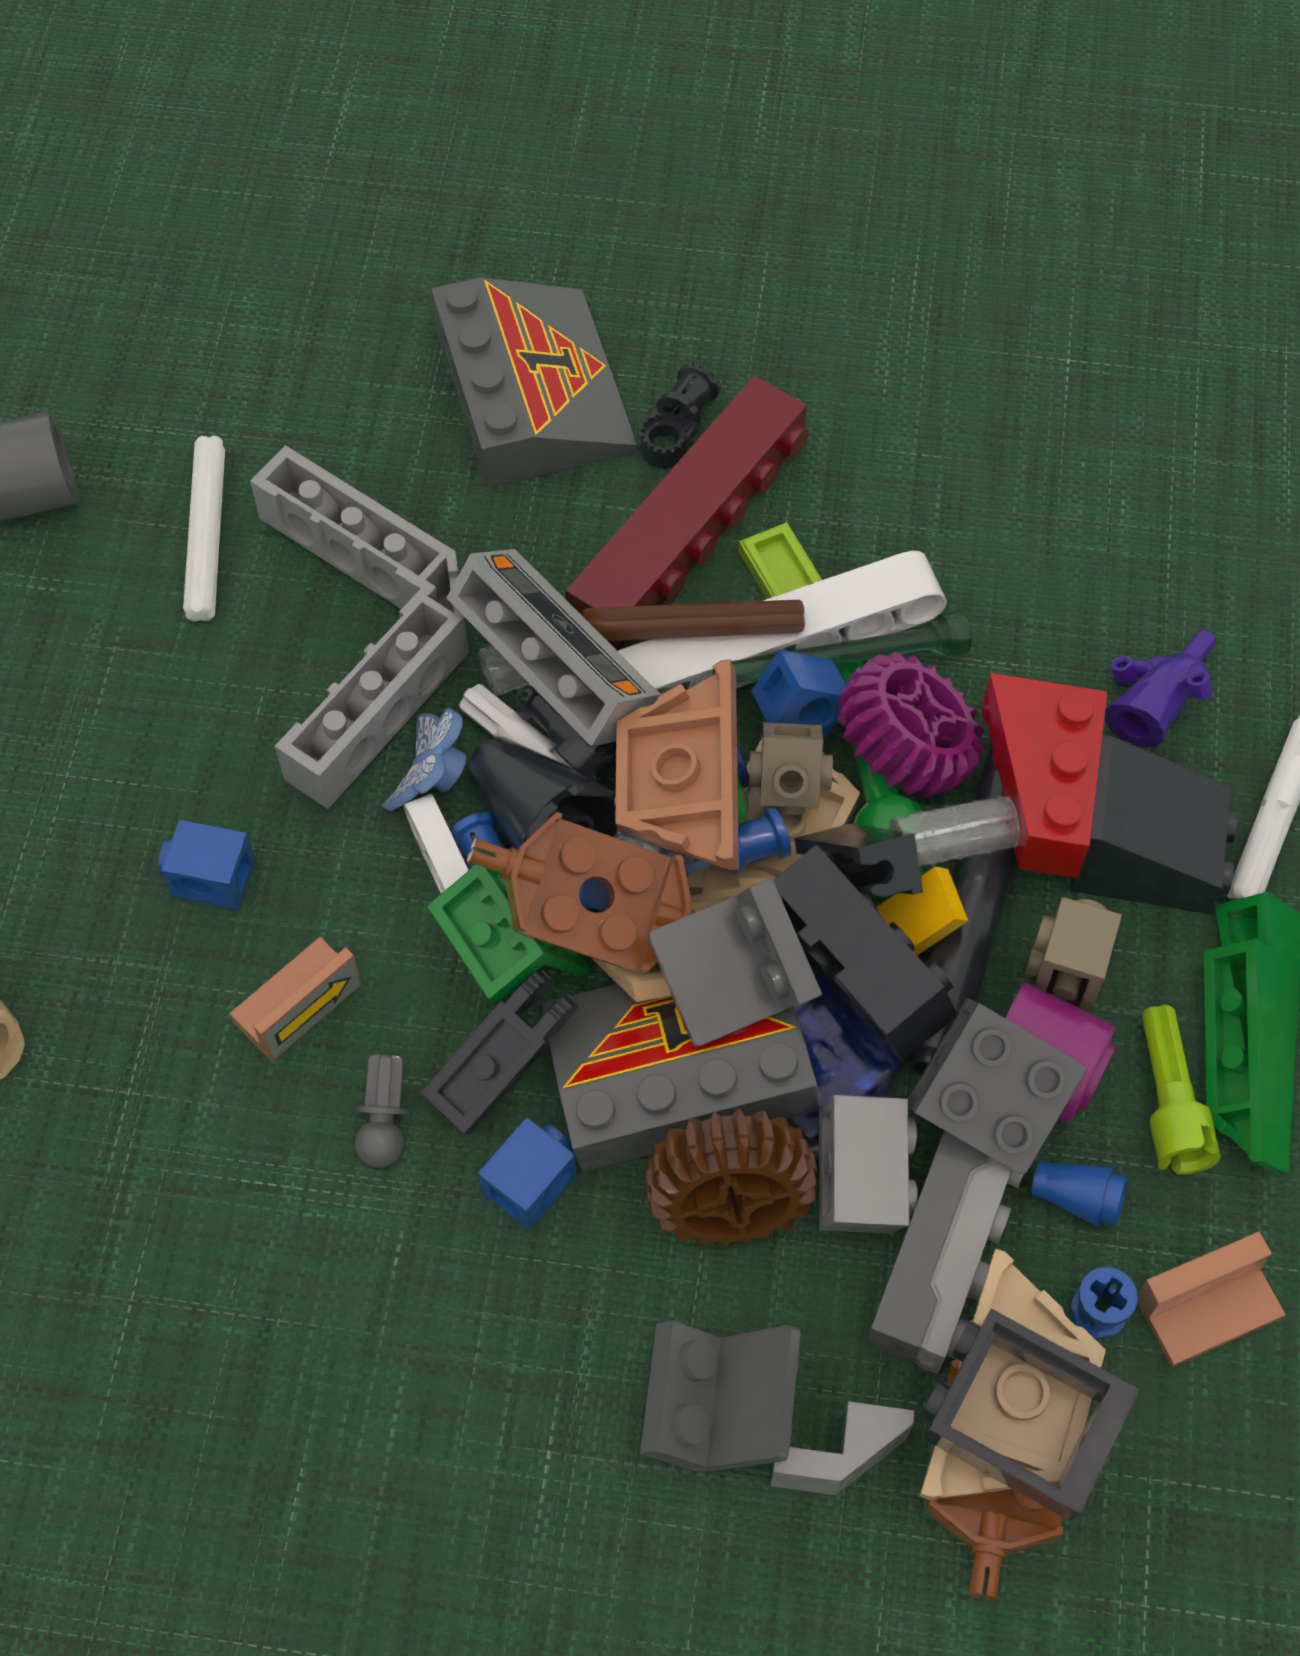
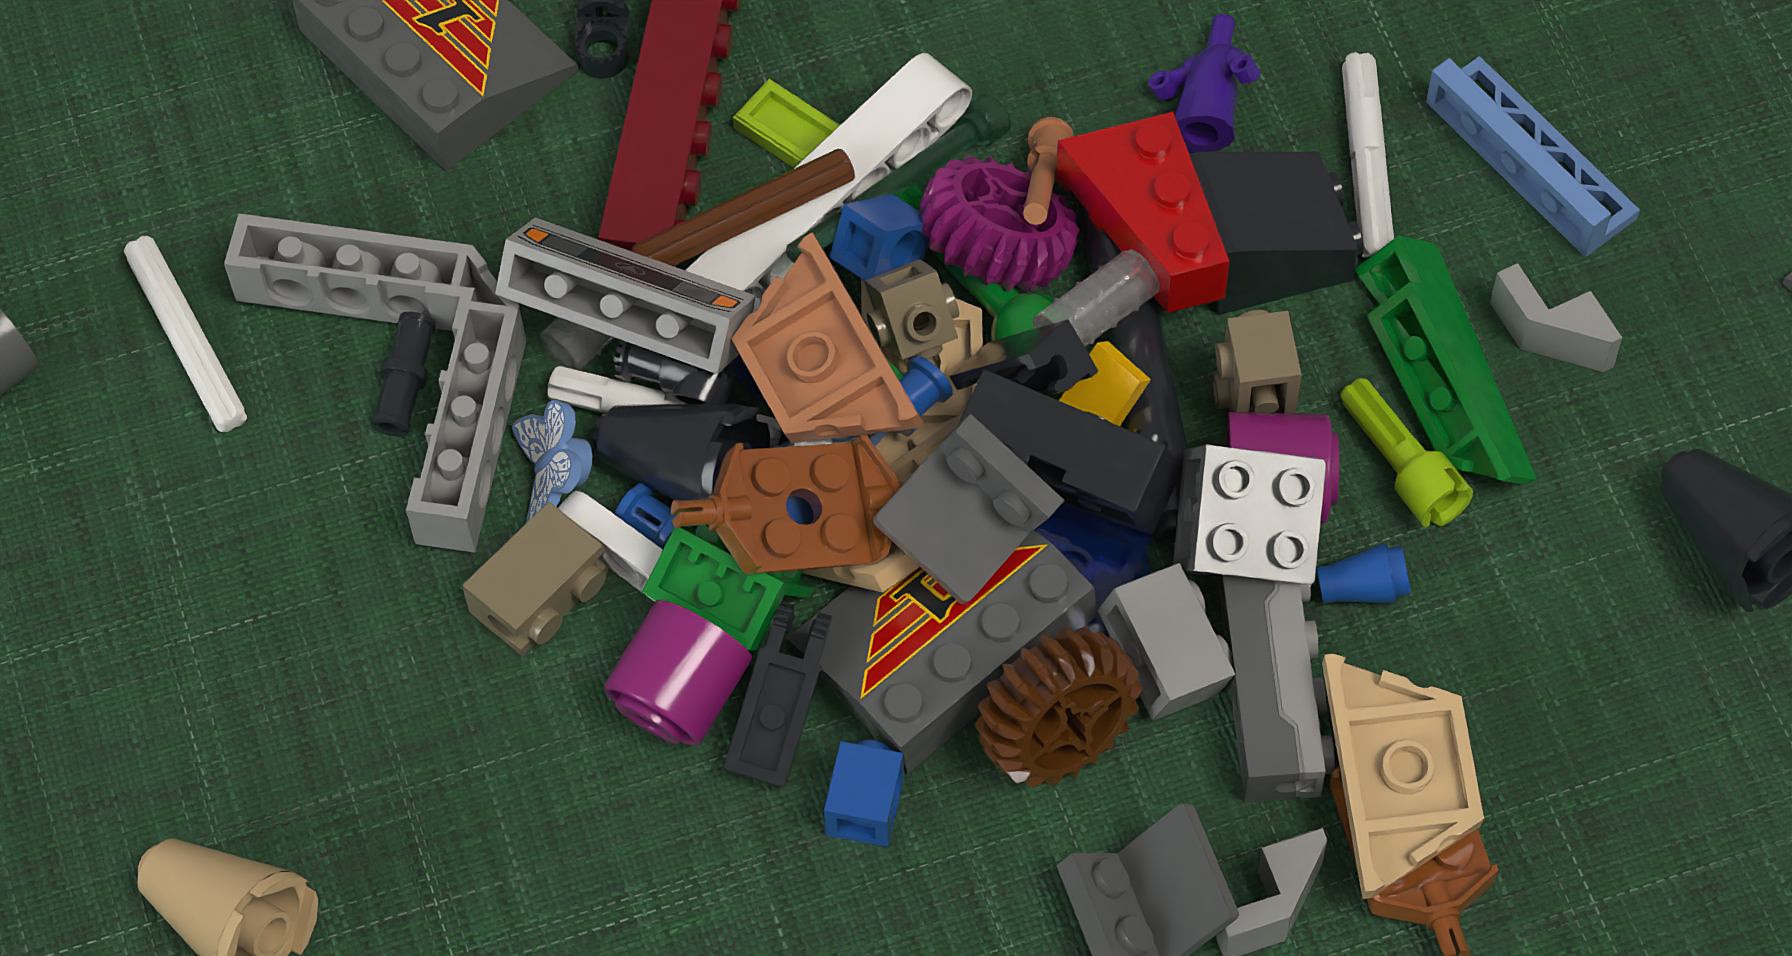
camera: 25 degrees left, 0 degrees up
(207, 864) = (391, 655): blue brick -> none
(297, 997) = (551, 739): nougat panel -> none
(353, 635) = (403, 374): none -> black pin
(360, 854) = (536, 579): none -> dark tan brick
(380, 1140) = (705, 832): dark grey axle -> none
(420, 992) = (677, 674): none -> magenta piece
(972, 697) = (1043, 163): none -> nougat pin
(1098, 1284) = (1449, 657): blue bush -> none
(1112, 1406) = (1481, 725): black window -> none
(1210, 1300) = (1523, 619): nougat panel -> none

